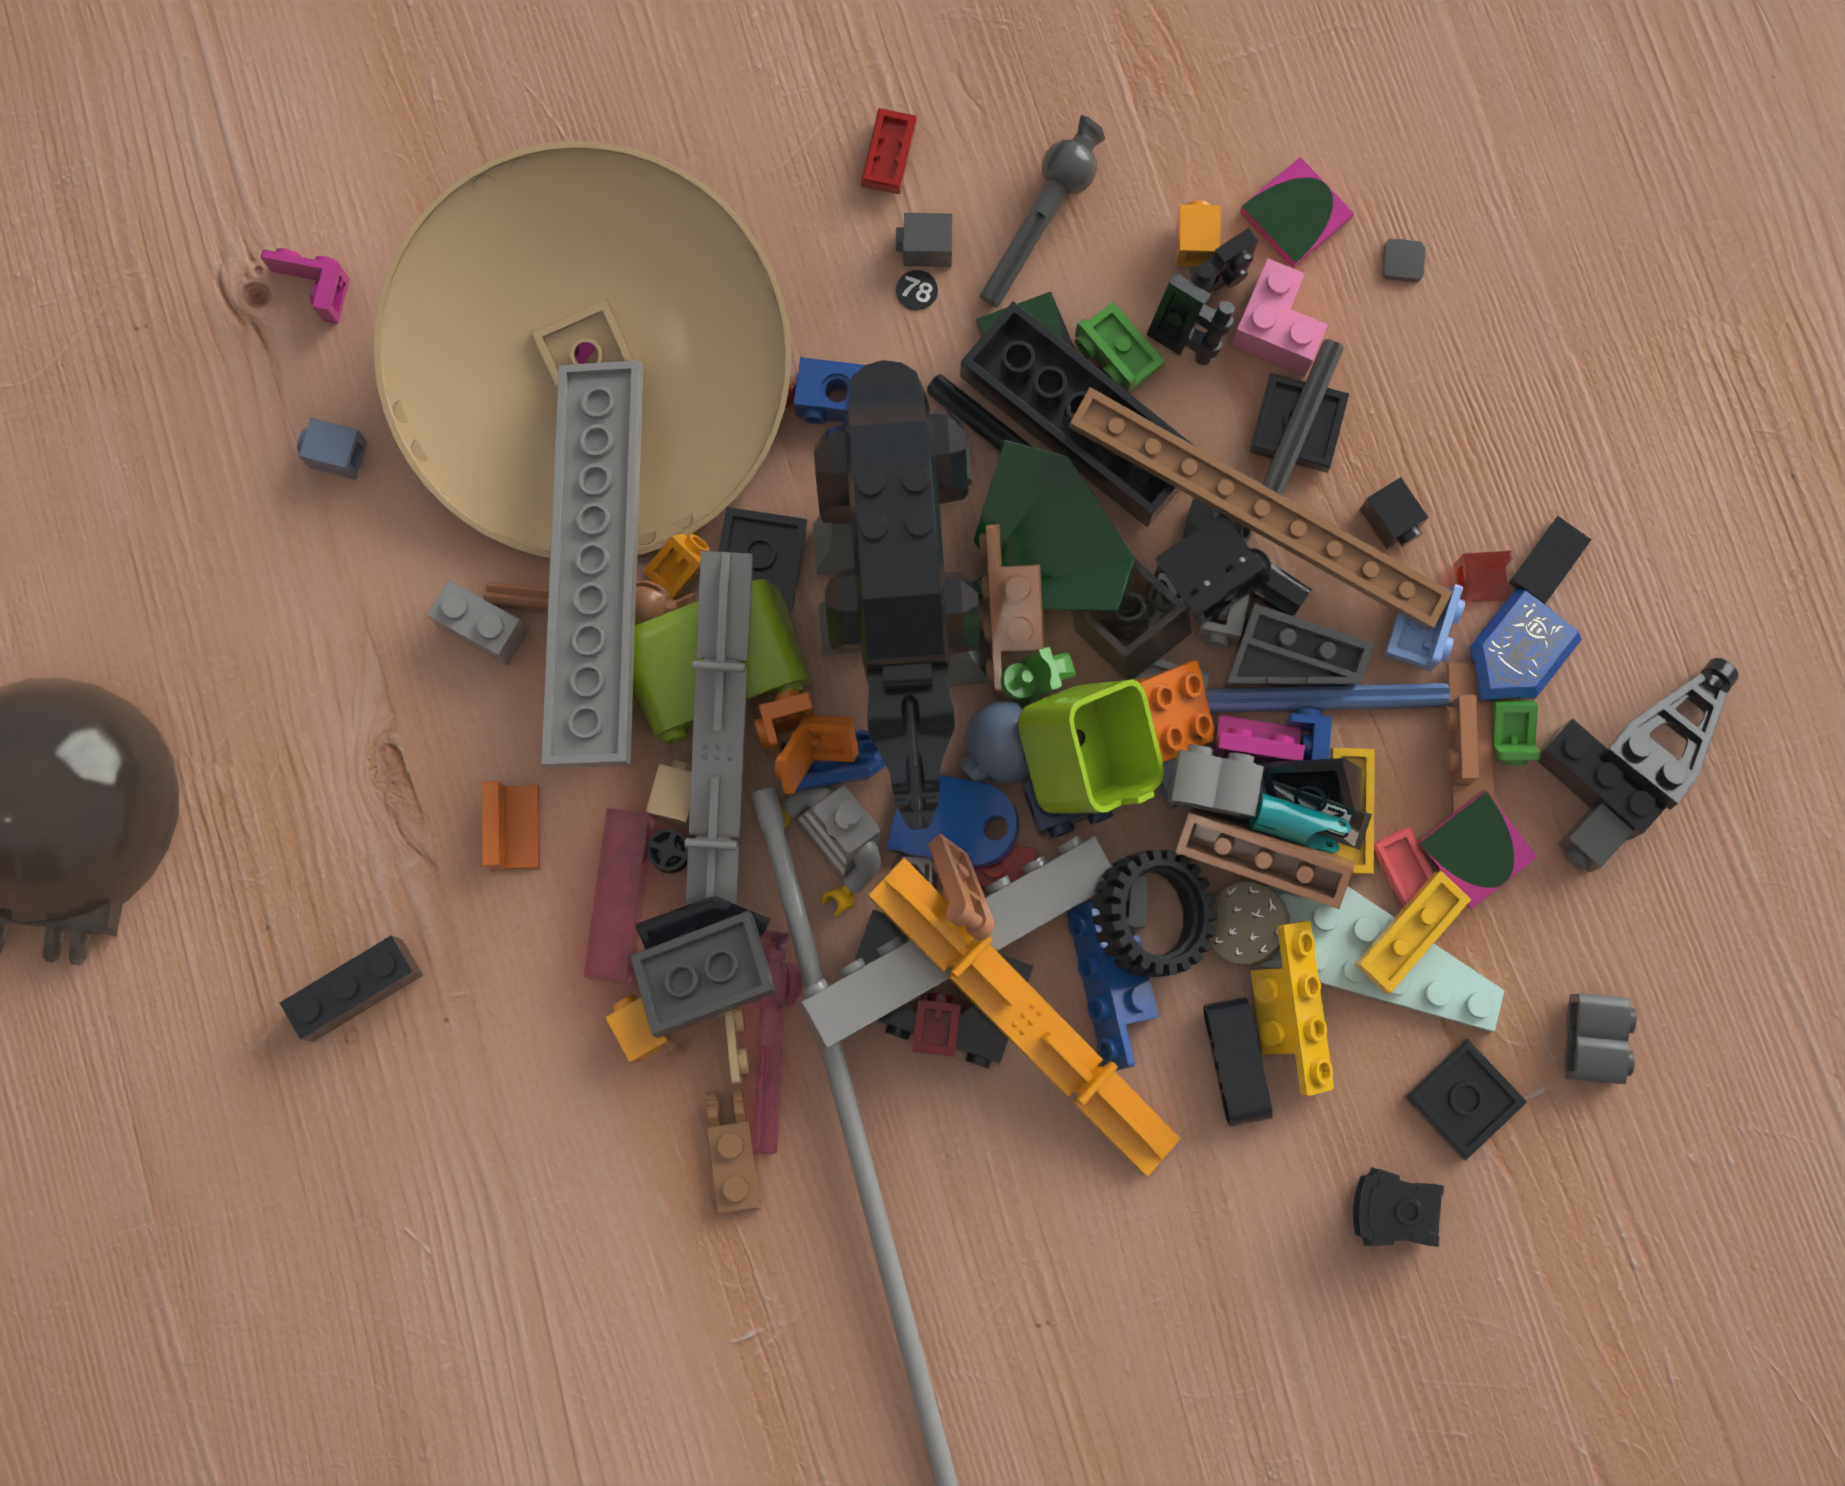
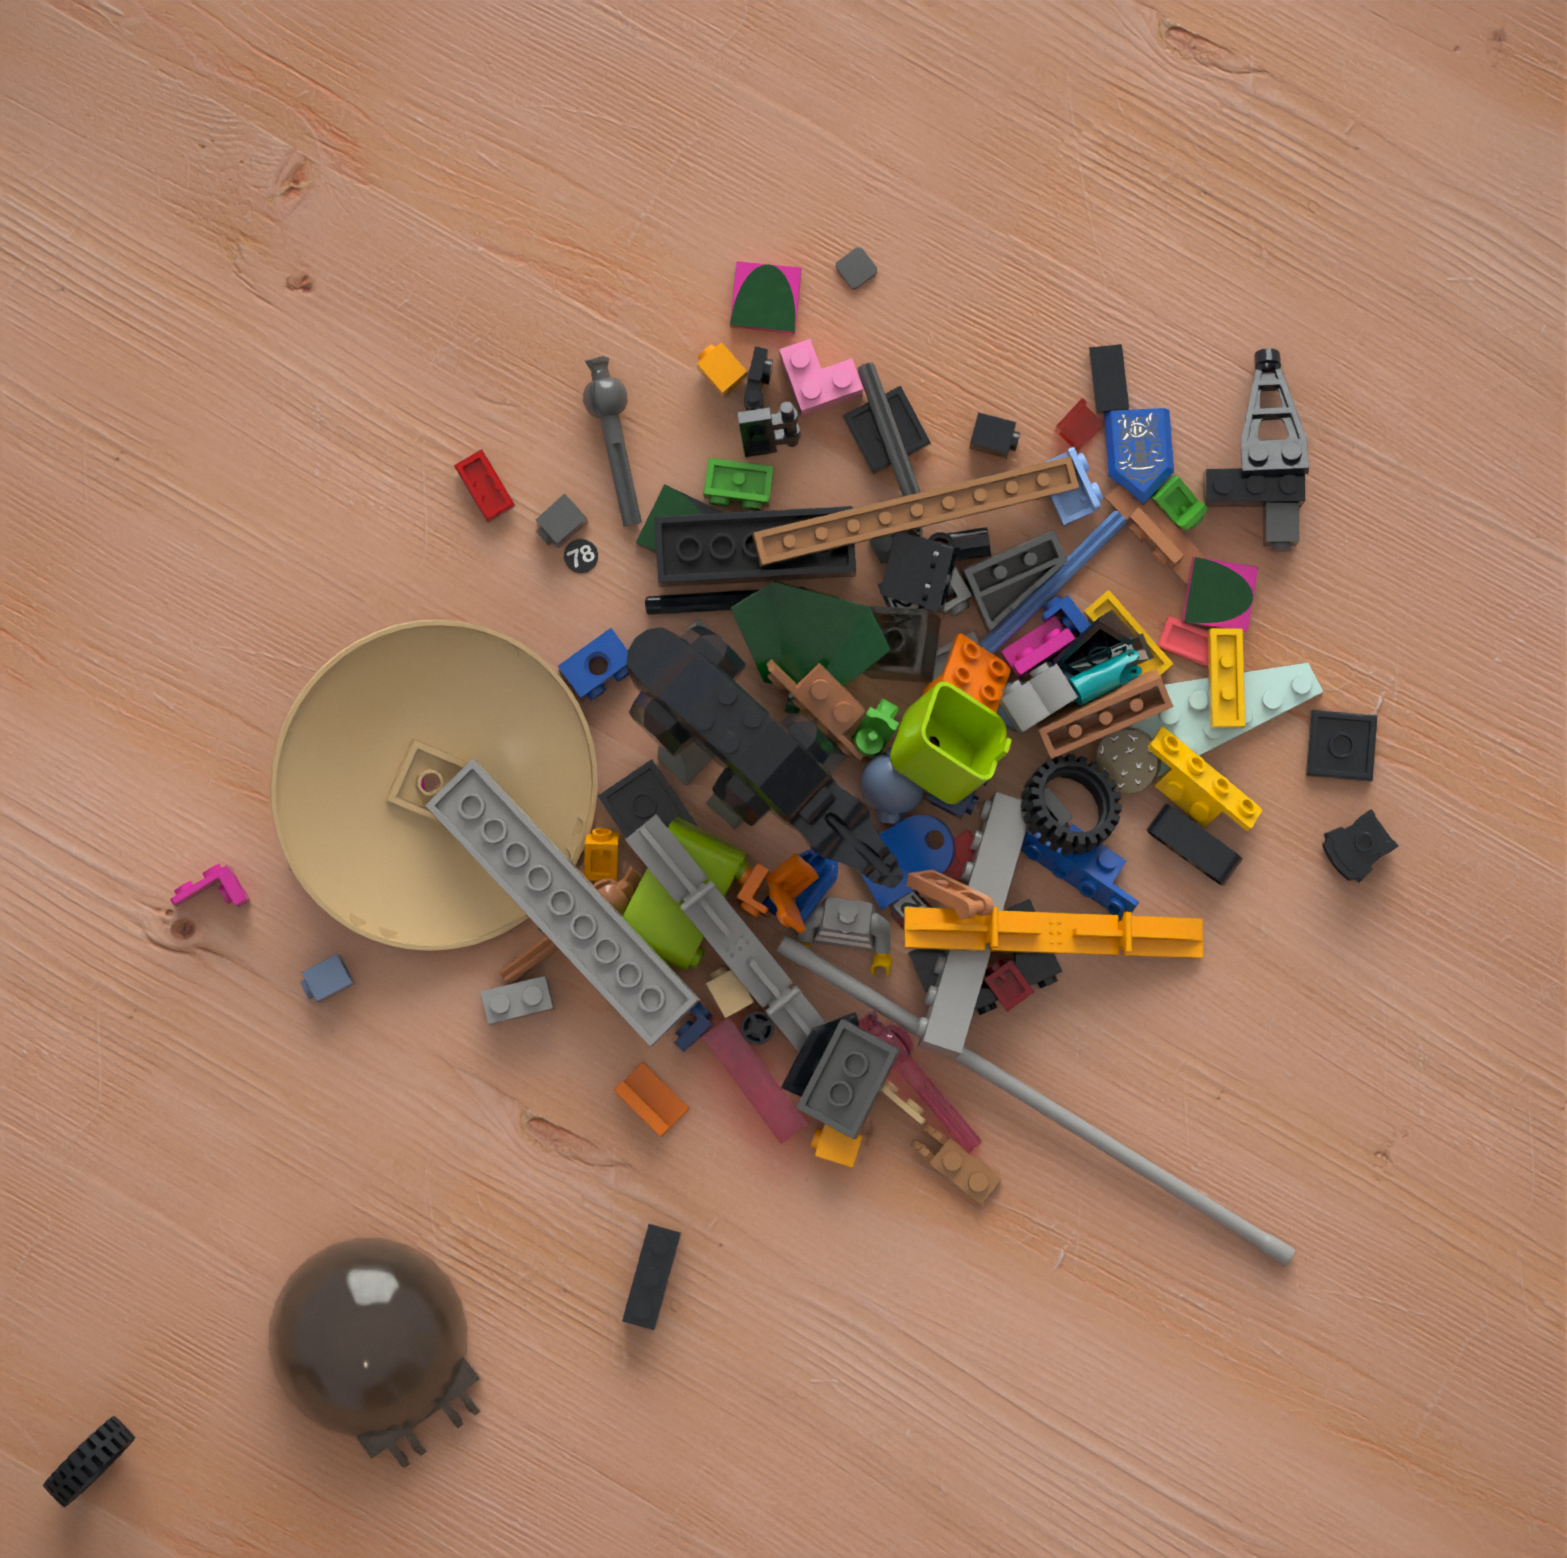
camera: 40 degrees left, 5 degrees up
(604, 794) = (690, 1032): none -> dark blue bracket
(1599, 1038) = (1386, 641): dark grey brick -> none

